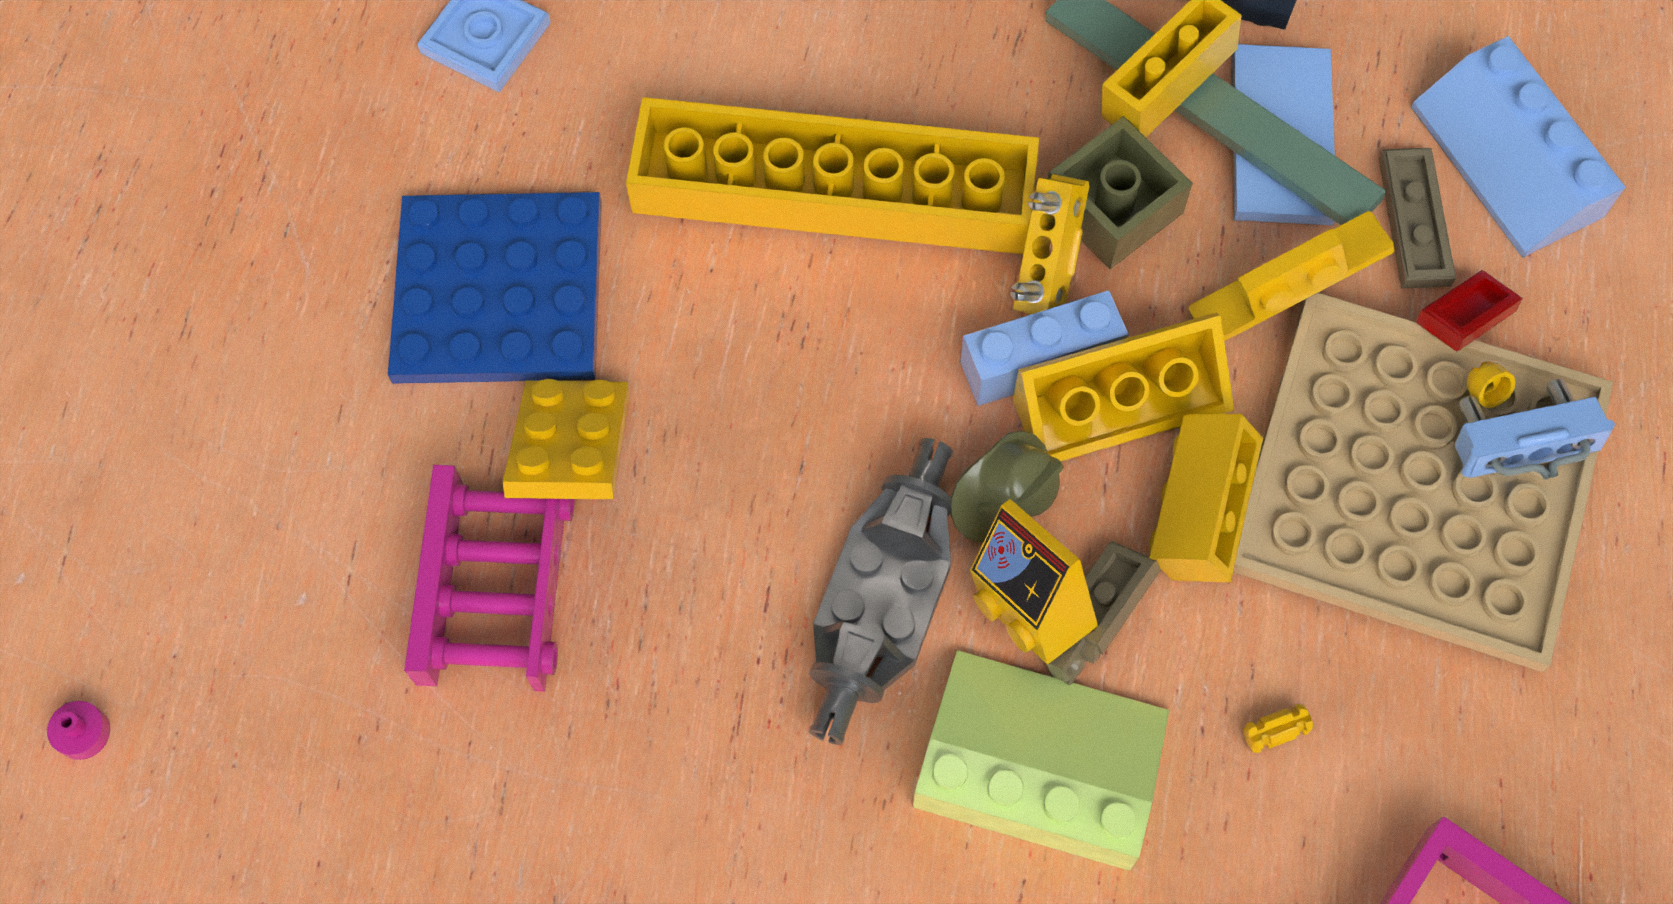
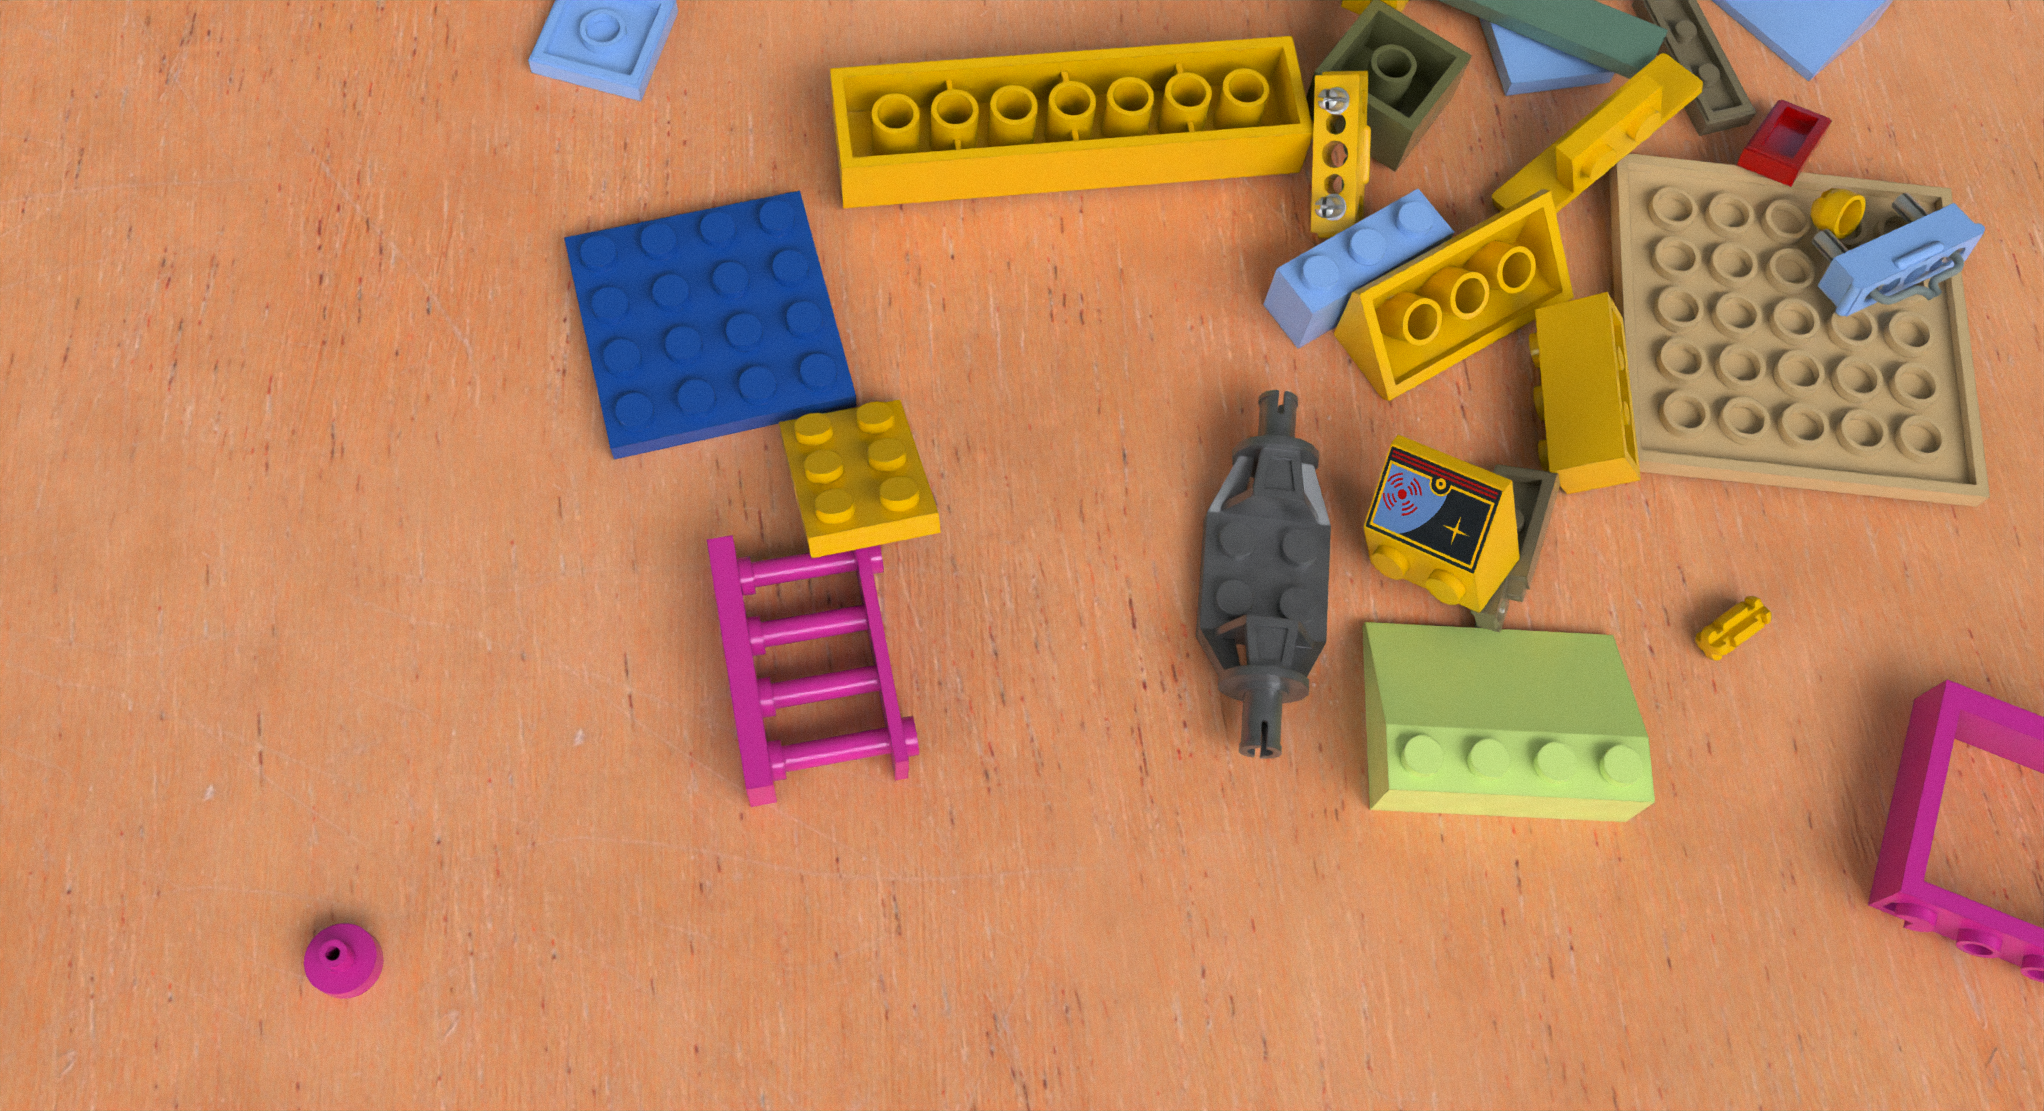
camera: 25 degrees left, 0 degrees up
(1013, 470) = (1365, 423): olive piece -> none

